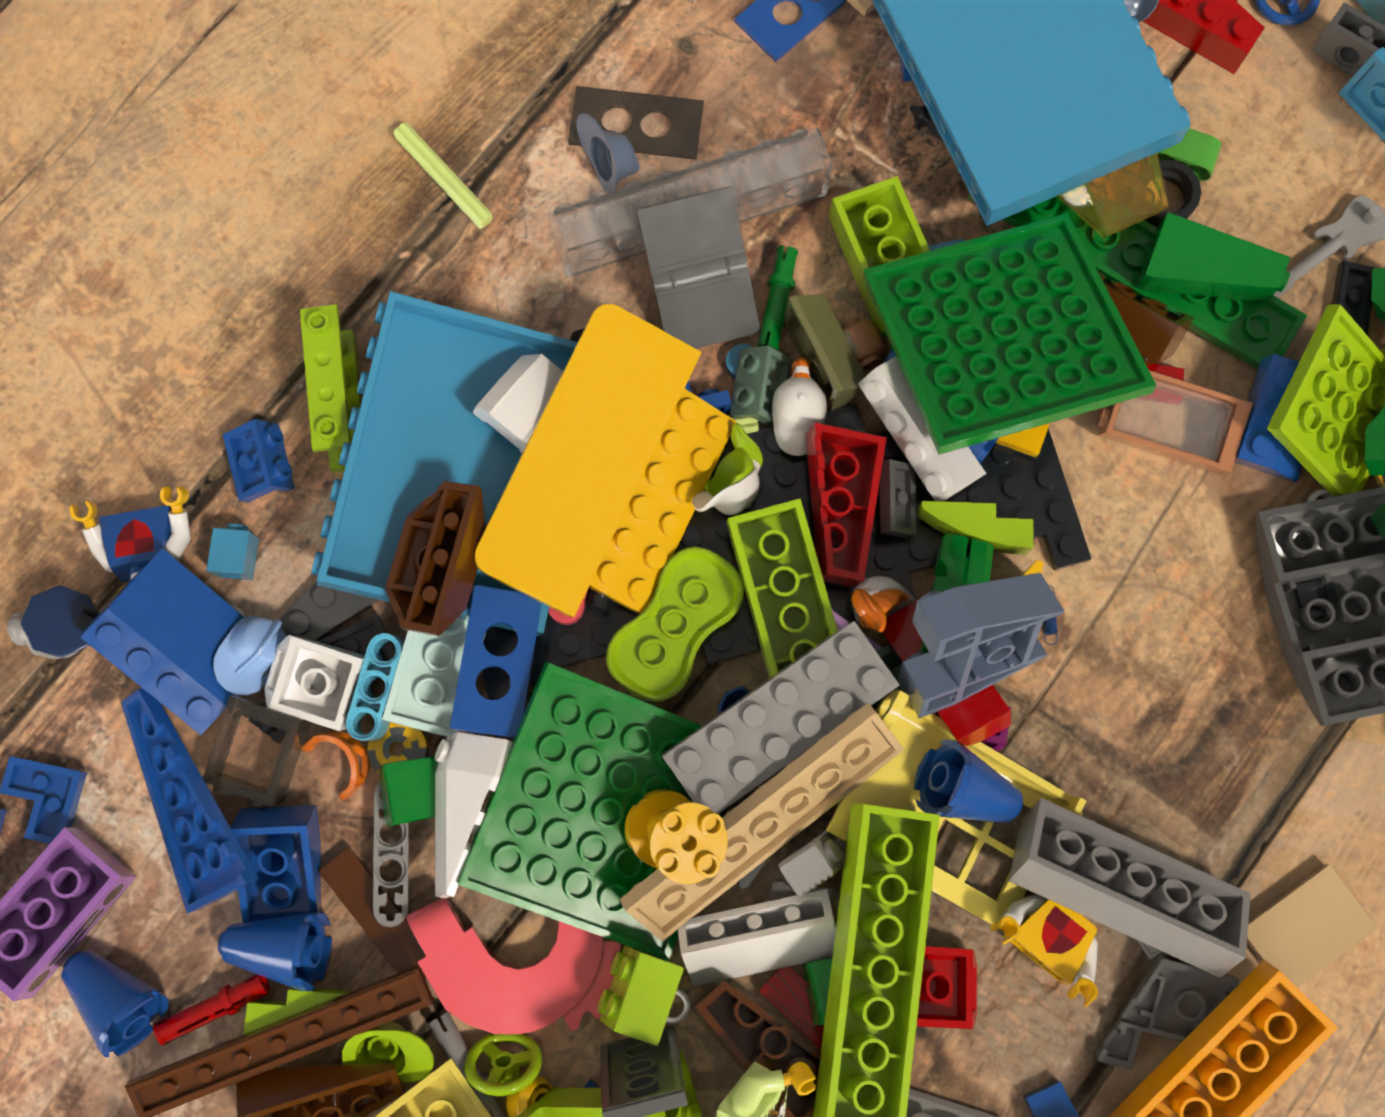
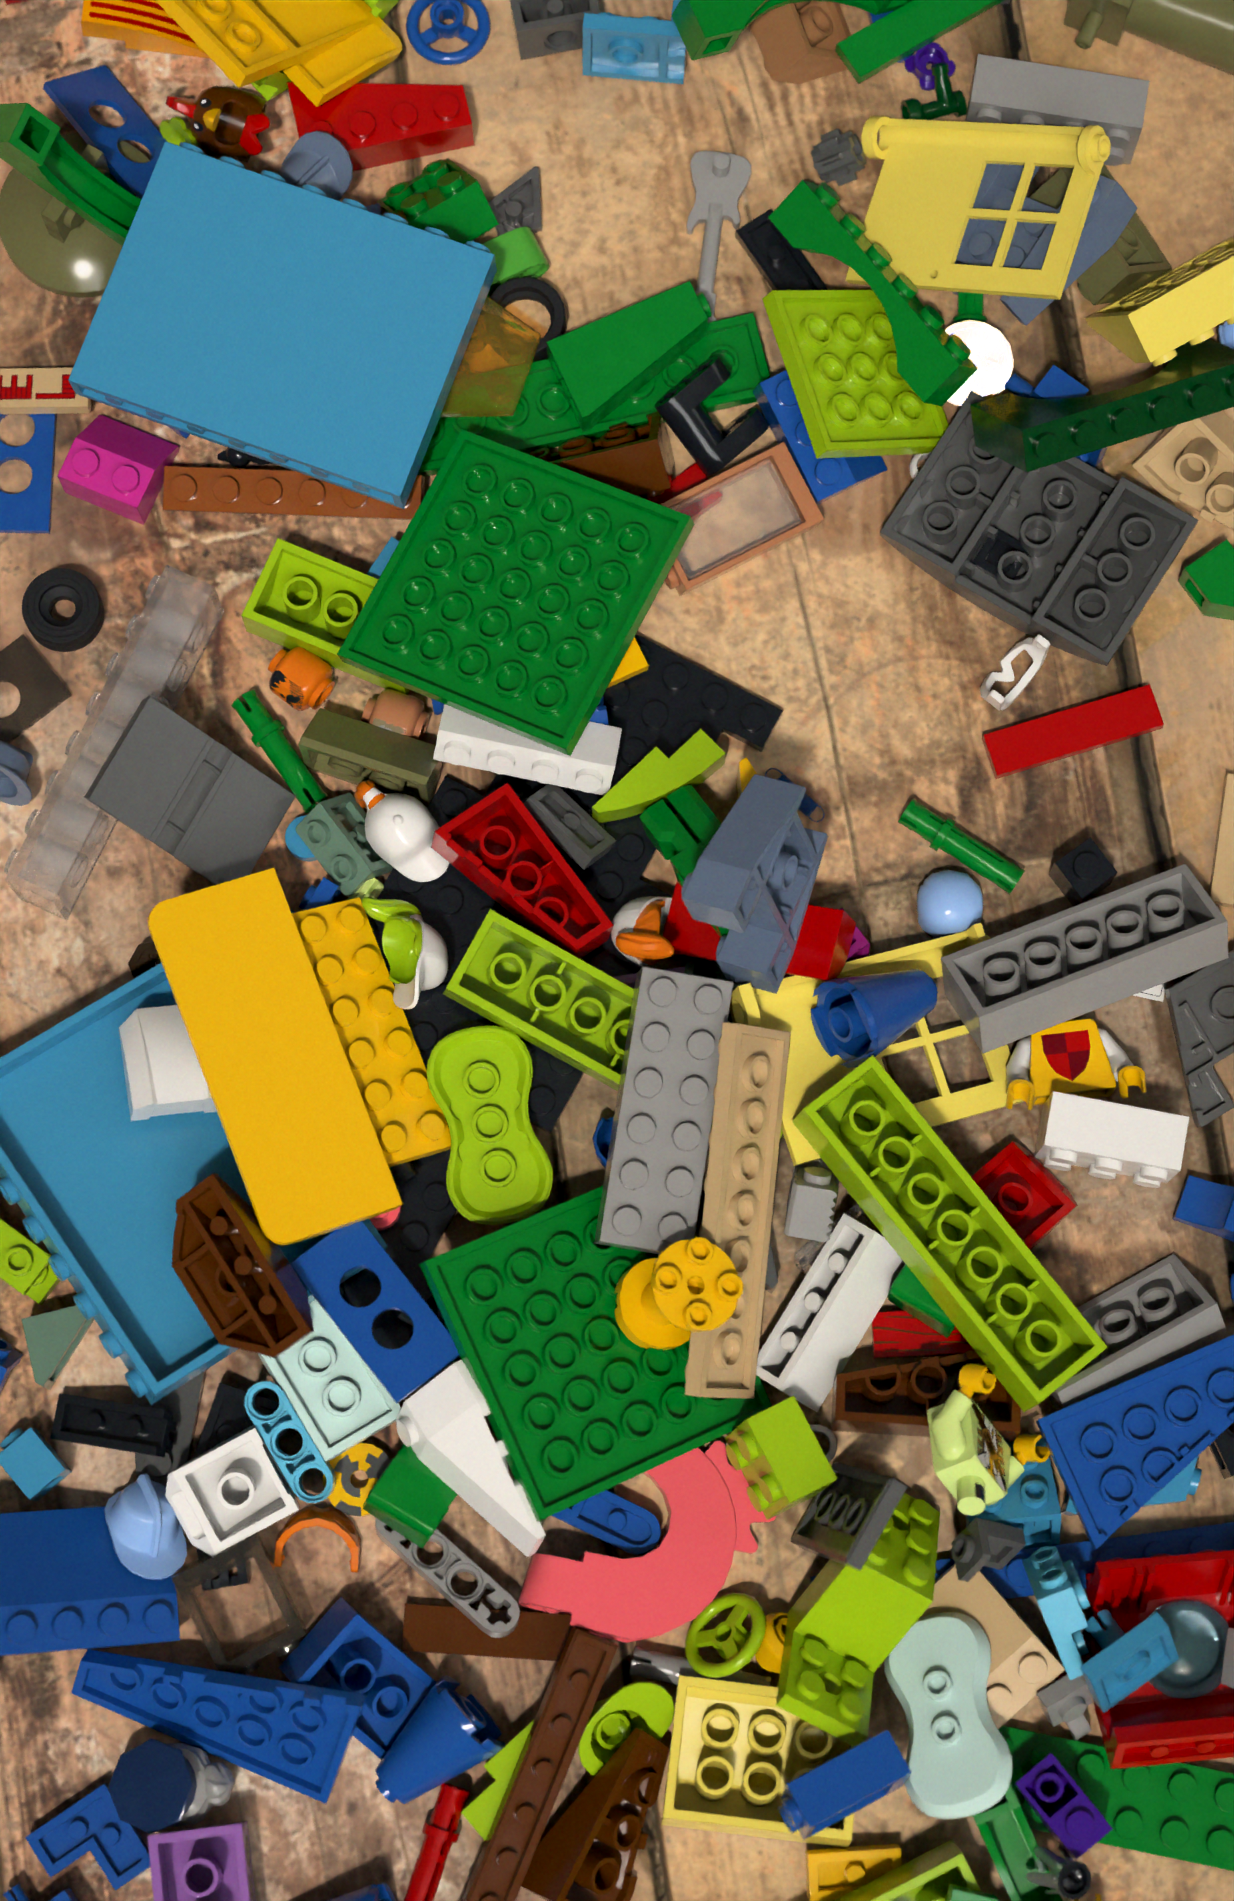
camera: 45 degrees left, 0 degrees up
(111, 810) = (167, 1785): none -> dark blue piece
(294, 578) = (113, 1425): none -> black hinge
(308, 498) = (52, 1341): none -> sand green slope
(512, 931) = (614, 1522): none -> blue plate
(738, 88) = (57, 586): none -> black tyre
(831, 270) = (300, 678): none -> orange head
(848, 59) = (117, 468): none -> dark pink slope
(922, 156) = (274, 494): none -> dark orange plate
(1035, 1013) = (1111, 1139): none -> white brick
(1077, 769) = (948, 903): none -> light blue hair
(1119, 743) = (968, 850): none -> green pin
(1179, 834) = (1082, 873): none -> black brick
(1192, 83) = (444, 200): none -> green slope
(1206, 346) = (696, 429): none -> black connector
(1228, 127) = (519, 204): none -> flat silver piece
(1257, 744) = (1072, 731): none -> red tile
(1283, 675) = (1037, 650): none -> white helmet

